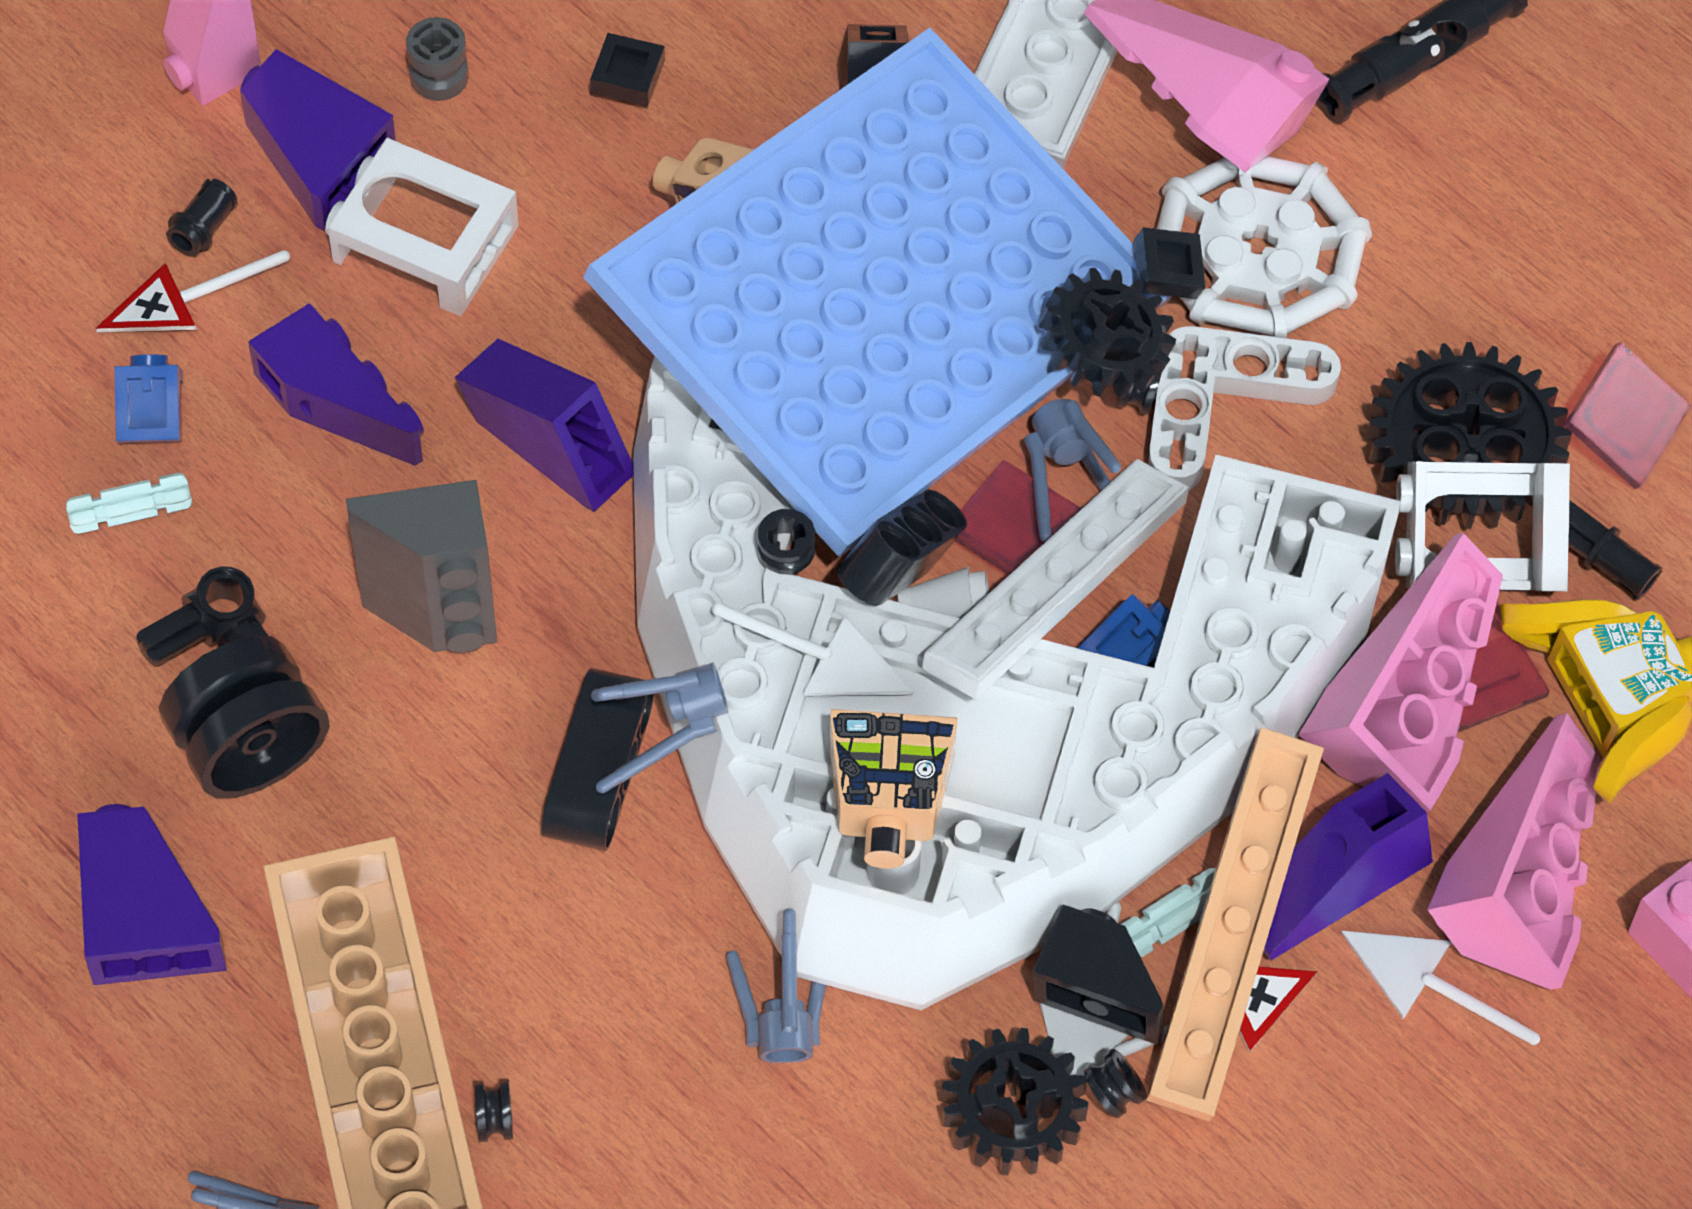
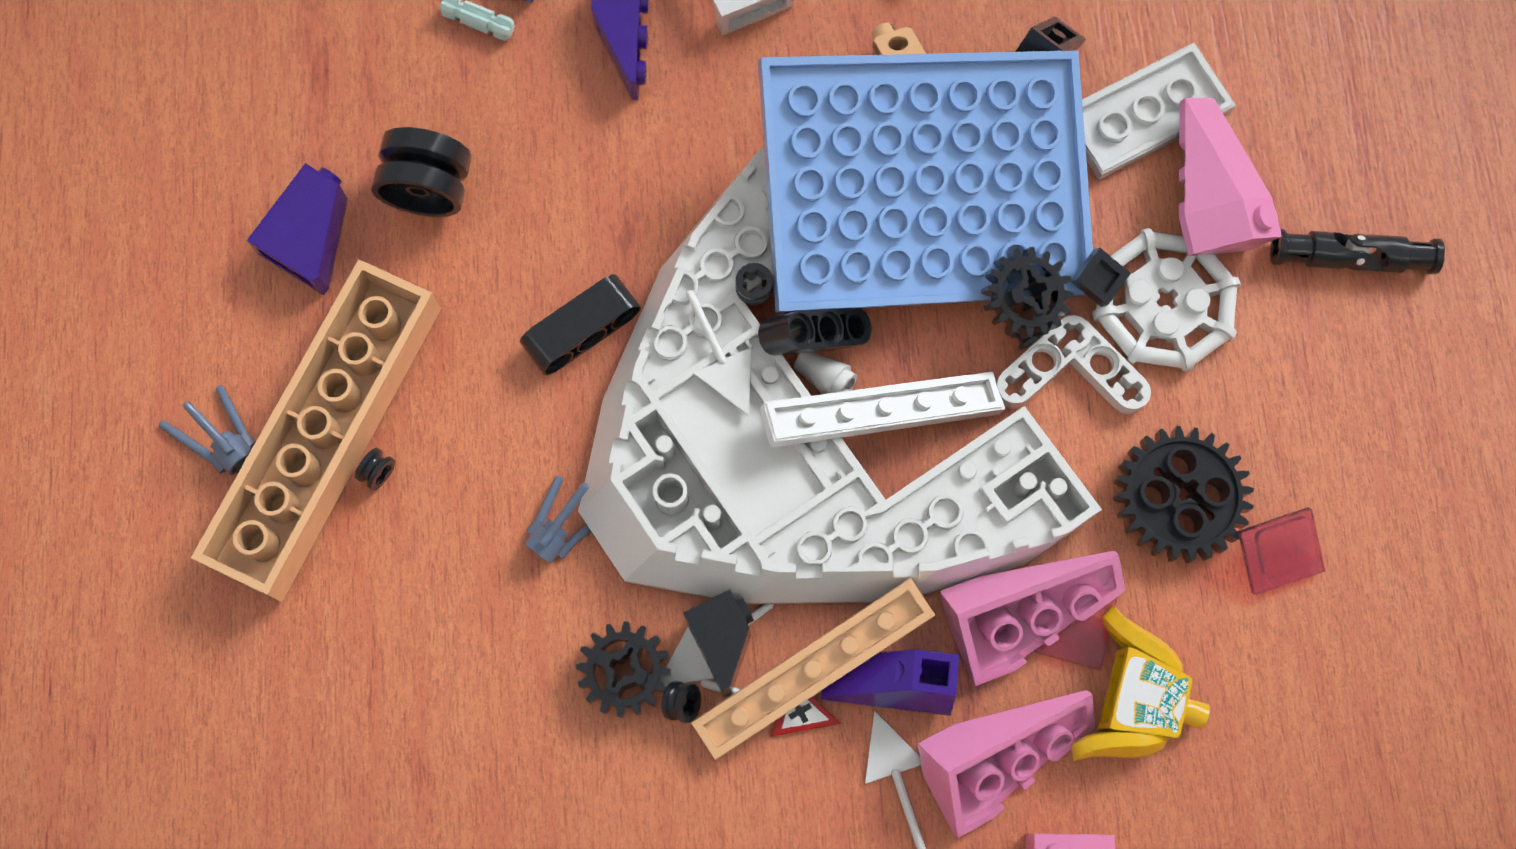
camera: 40 degrees right, 15 degrees up
(200, 621) = (450, 104): black axle -> none
(426, 564) = (575, 161): dark grey slope -> none
(548, 420) = (707, 125): dark purple slope -> none
(690, 695) = (631, 330): sand blue plant -> none
(890, 778) = (688, 456): torso -> none
(1004, 520) = (900, 355): clear pink piece -> none
(1066, 438) = (962, 332): sand blue plant -> none
(1131, 632) = (898, 468): blue bracket -> none
(1170, 914) = (787, 632): light aqua axle -> none
(1550, 524) = (1152, 600): white panel -> none
(1610, 553) = (1200, 612): black axle -> none

